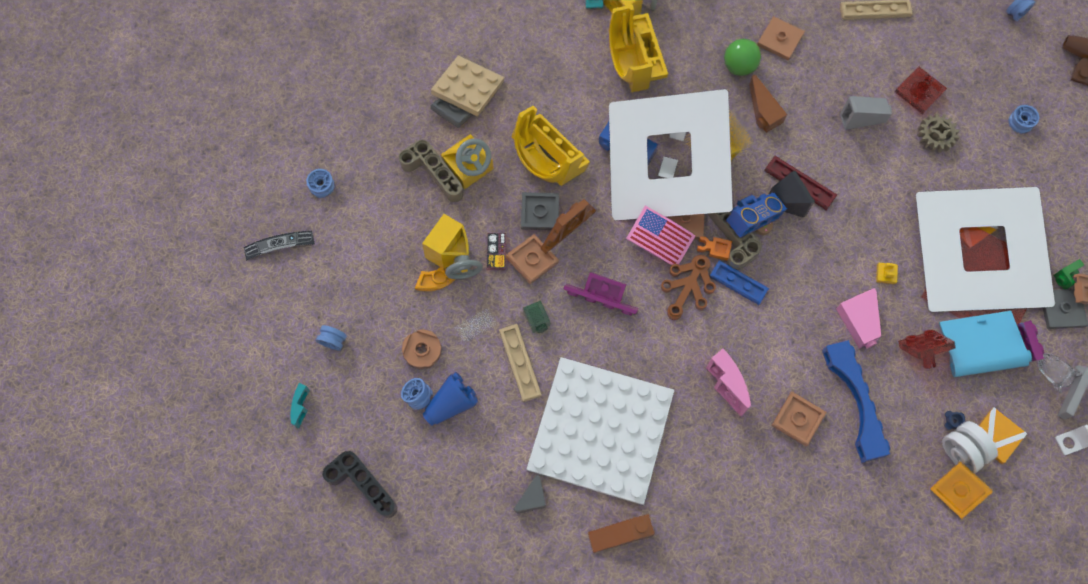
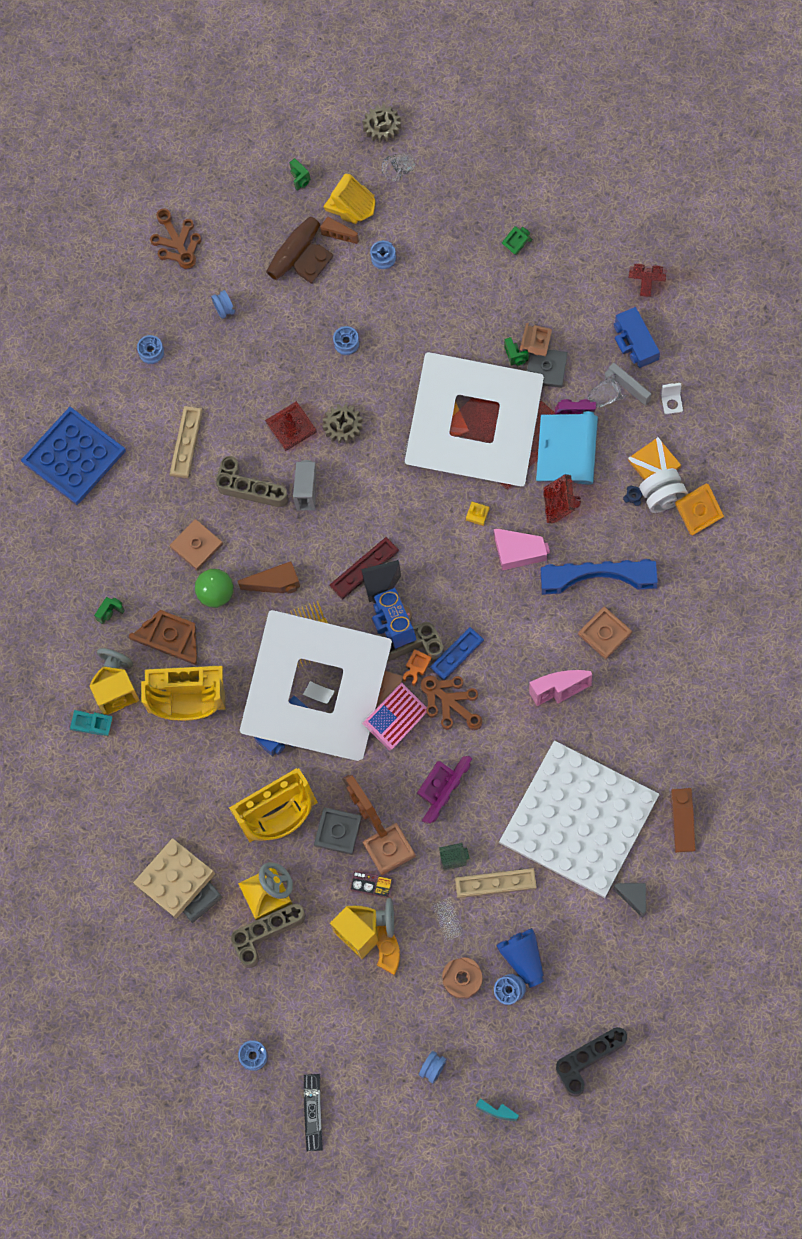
camera: 70 degrees left, 0 degrees up
(689, 35) = (169, 635): none -> dark orange wing
(856, 48) = (253, 486): none -> dark tan beam

